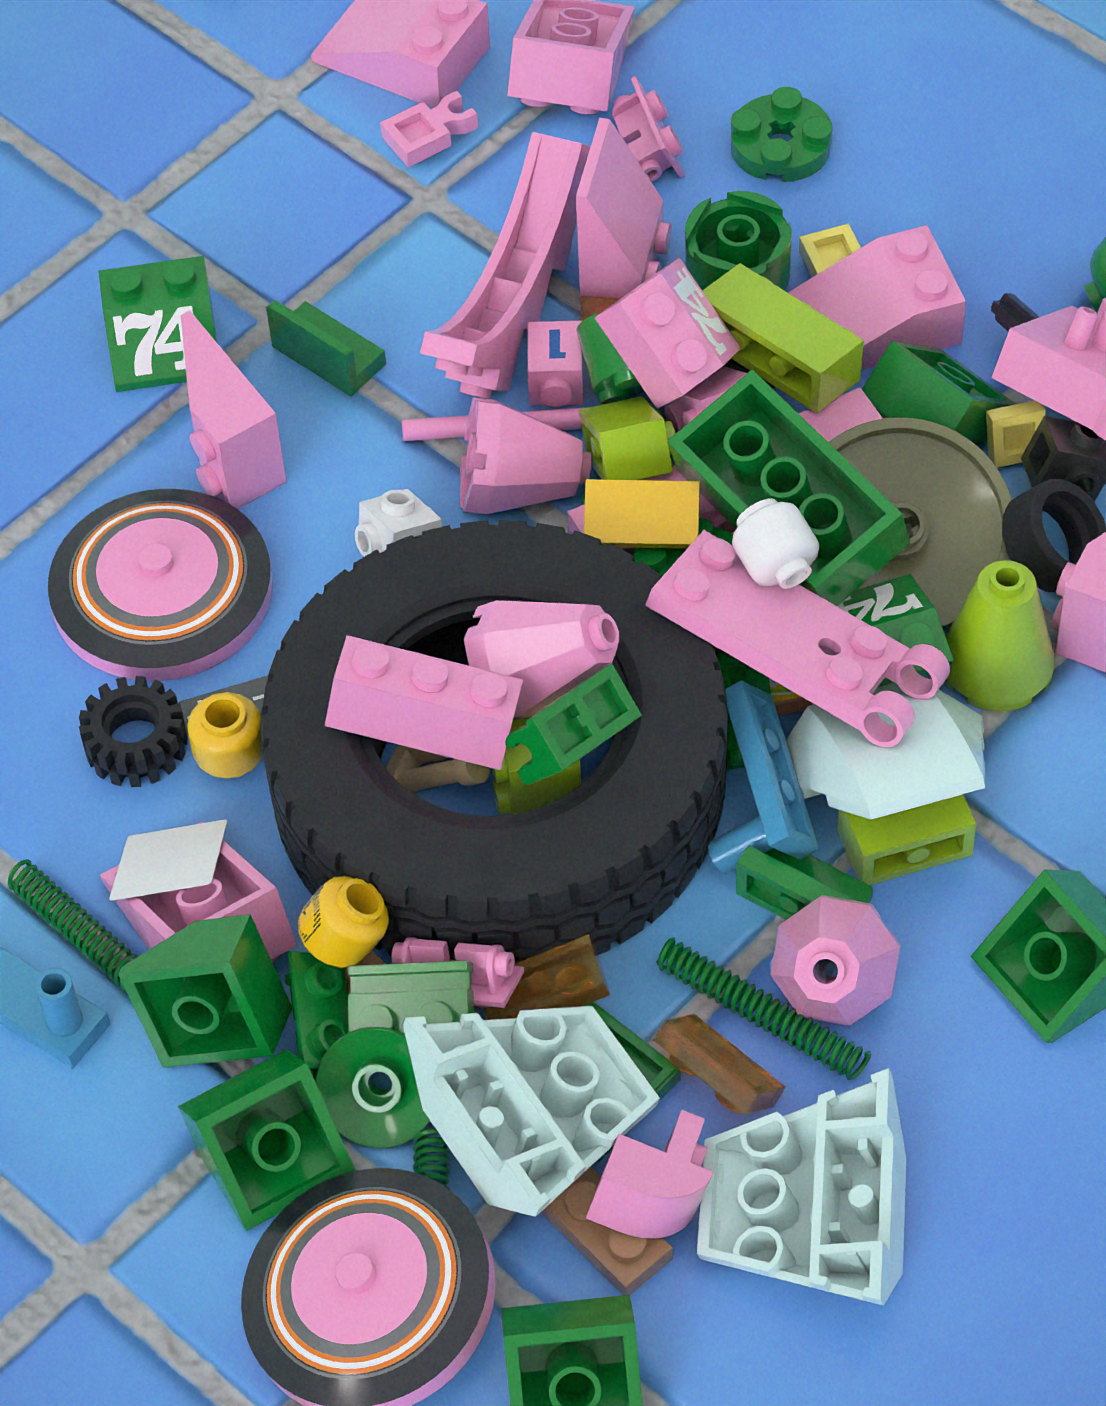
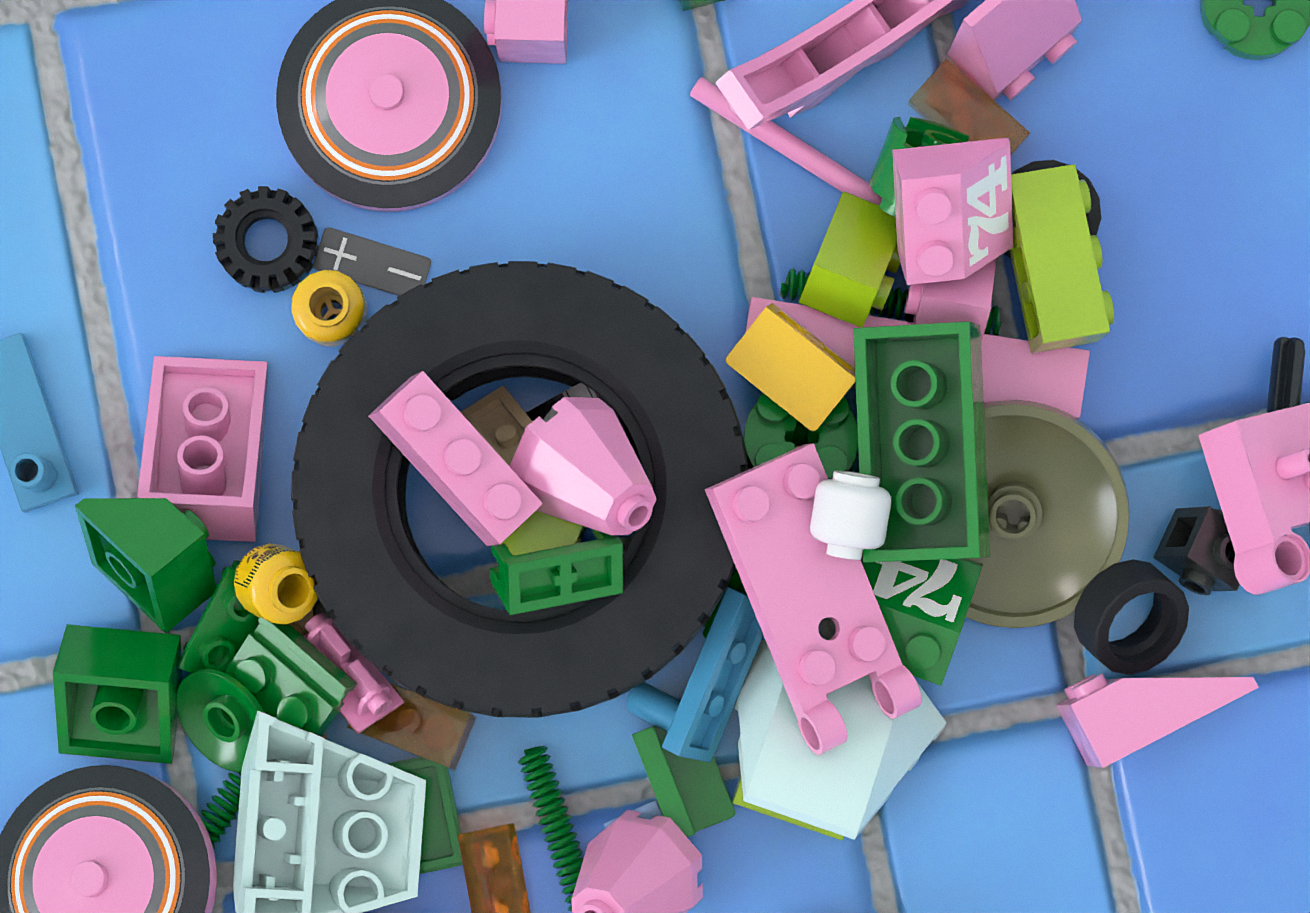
camera: 30 degrees right, 30 degrees up
(56, 923) = (100, 405): green piece -> none
(168, 860) = (208, 391): white sticker -> none
(391, 519) = (604, 208): white brick -> none
(517, 460) = (754, 205): bright pink cone -> none
(554, 364) = (864, 119): bright pink brick -> none
(735, 231) = (1108, 90): green brick -> none
(827, 247) = (1193, 175): light yellow plate -> none
(891, 293) = (1184, 258): bright pink slope -> none
(933, 388) = (1154, 395): green slope -> none
(1001, 640) = (979, 686): lime cone -> none
(1011, 431) = (1187, 482): light yellow plate -> none

